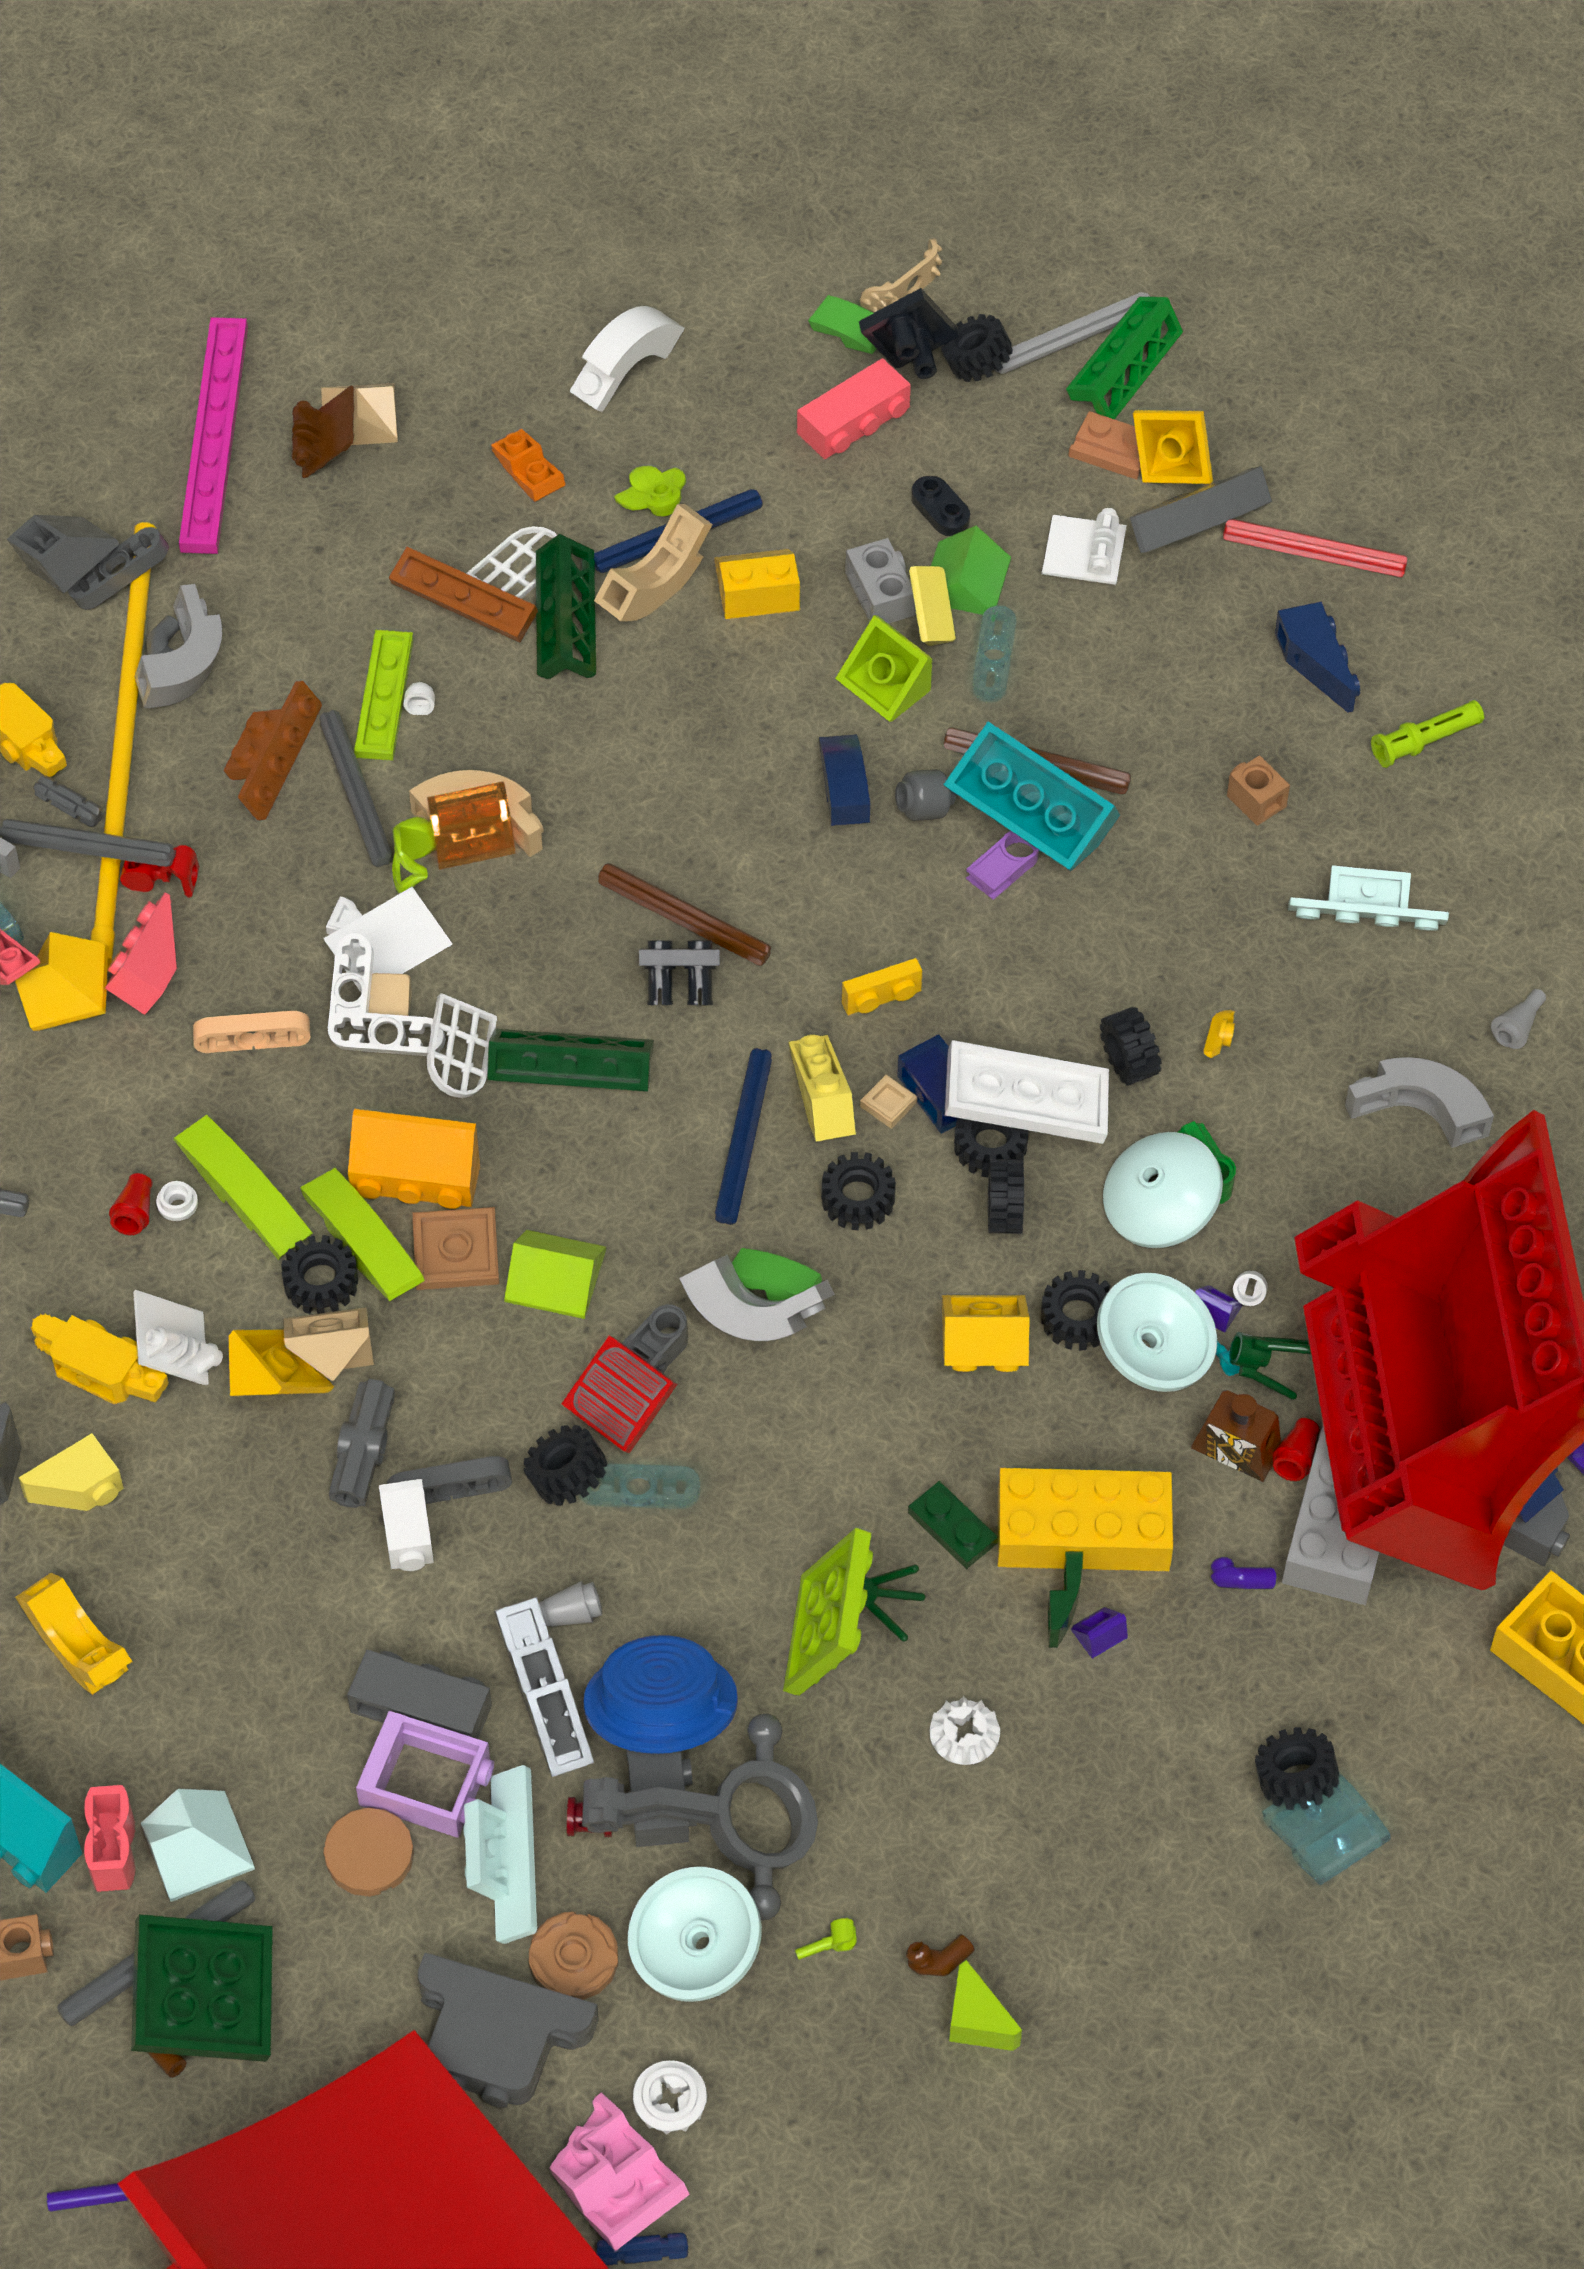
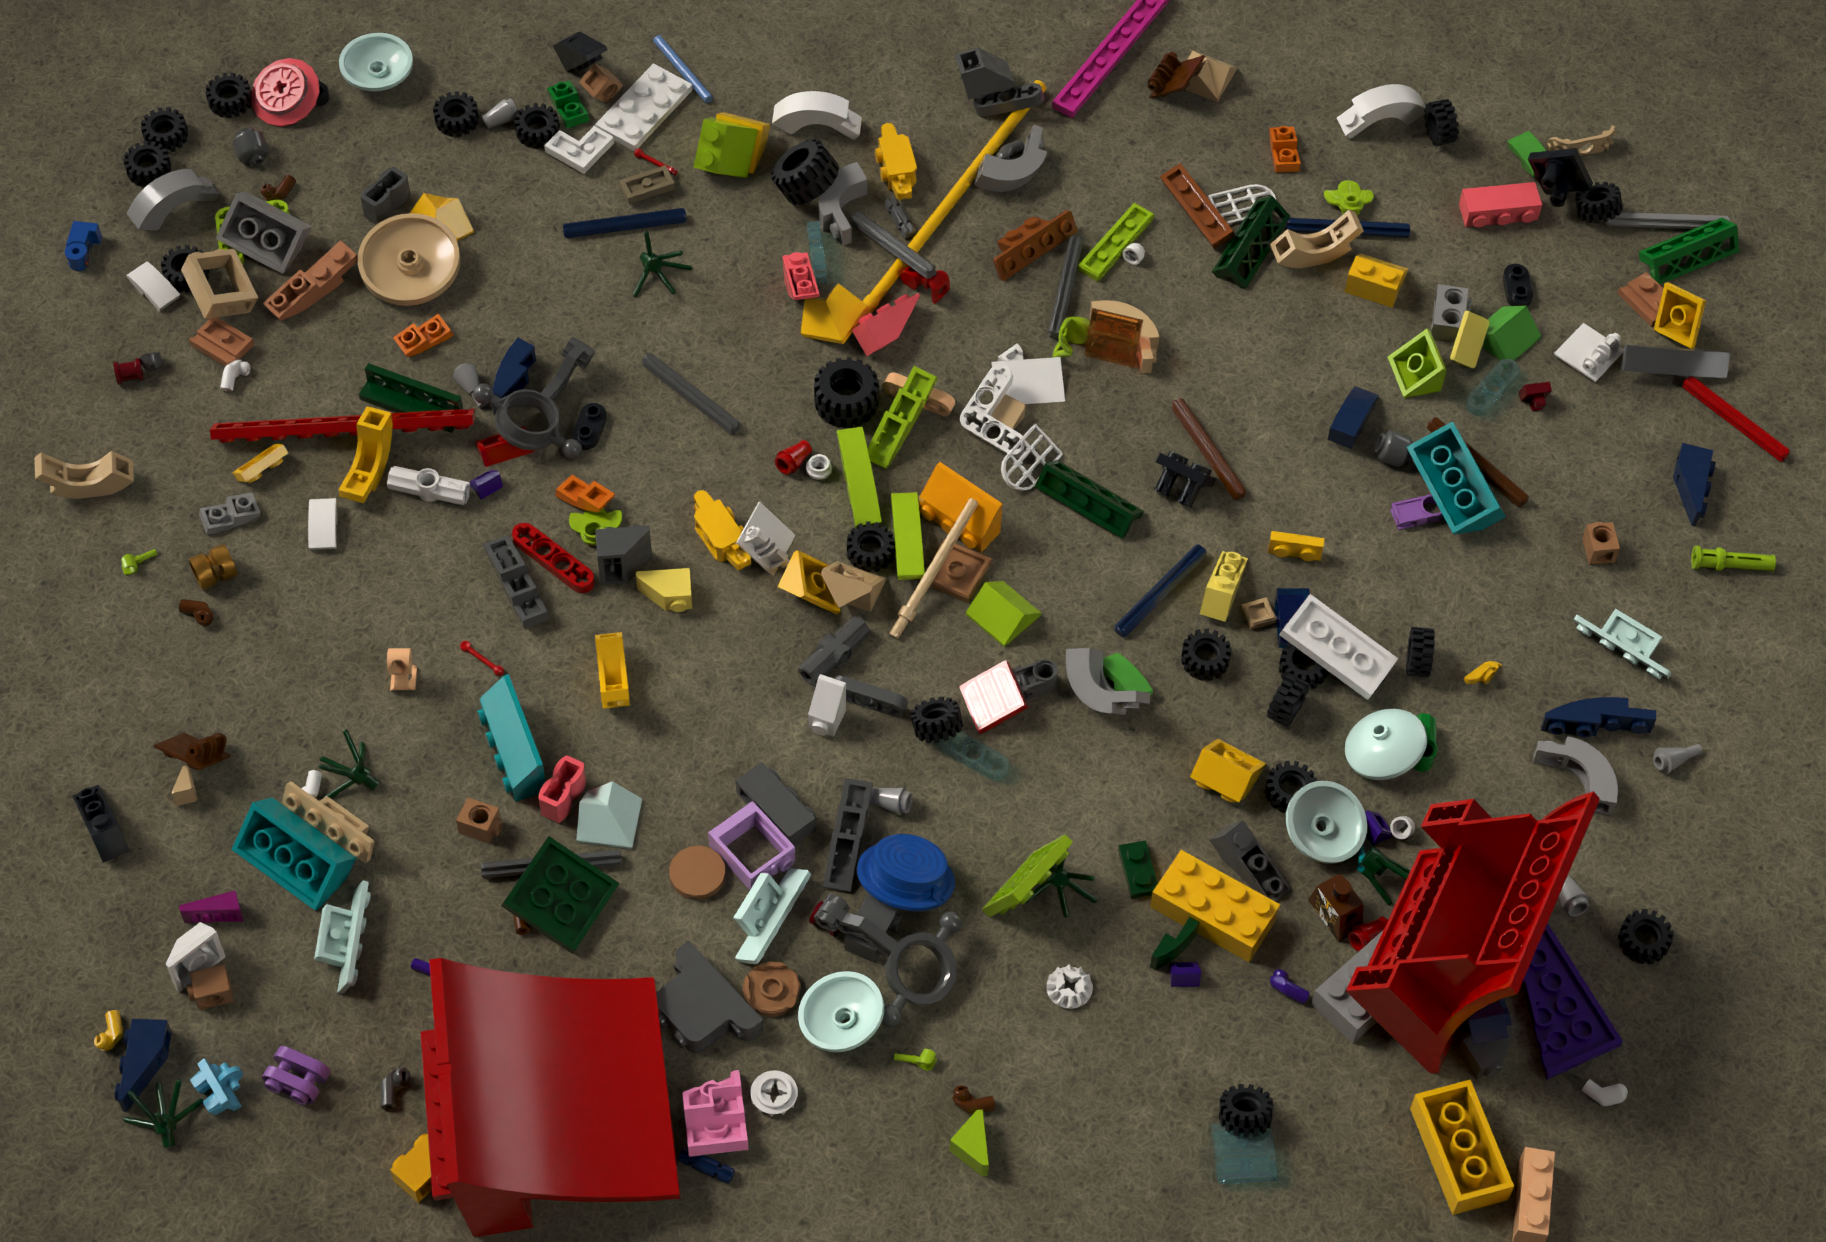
camera: 30 degrees right, 0 degrees up
(159, 1103) = (846, 408): none -> black tyre
(250, 1073) = (901, 417): none -> lime slope
(429, 1339) = (908, 612): none -> tan bar
(713, 334) = (1441, 122): none -> black tyre
(1056, 637) = (1536, 394): none -> dark red tile
(1086, 1434) = (1249, 860): none -> dark grey slope
(1386, 1020) = (1588, 715): none -> dark blue slope

